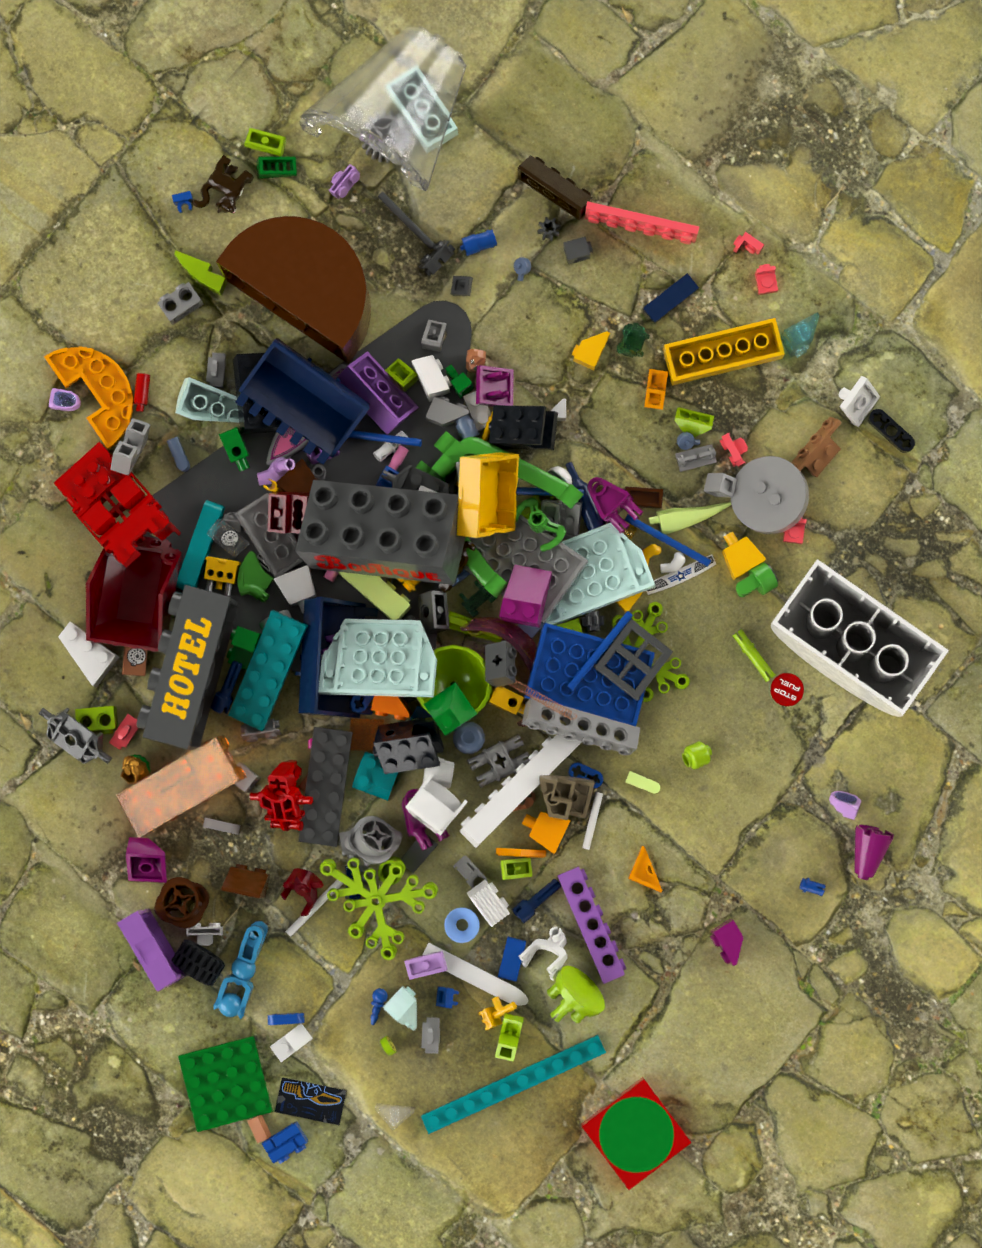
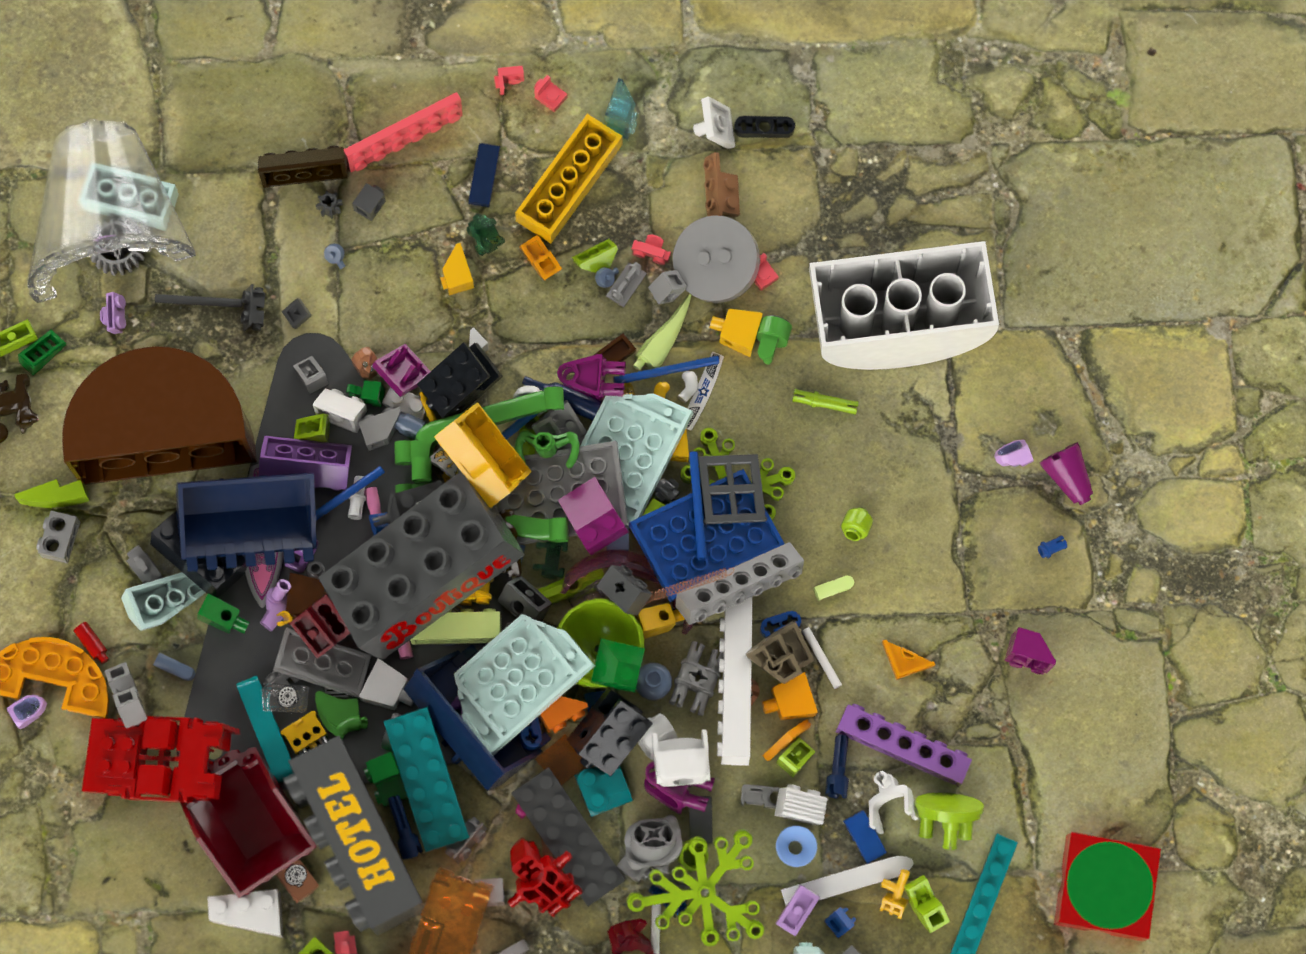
camera: 55 degrees left, 10 degrees down
(475, 243) = (277, 267): blue piece -> none
(787, 689) = (878, 406): red sticker -> none

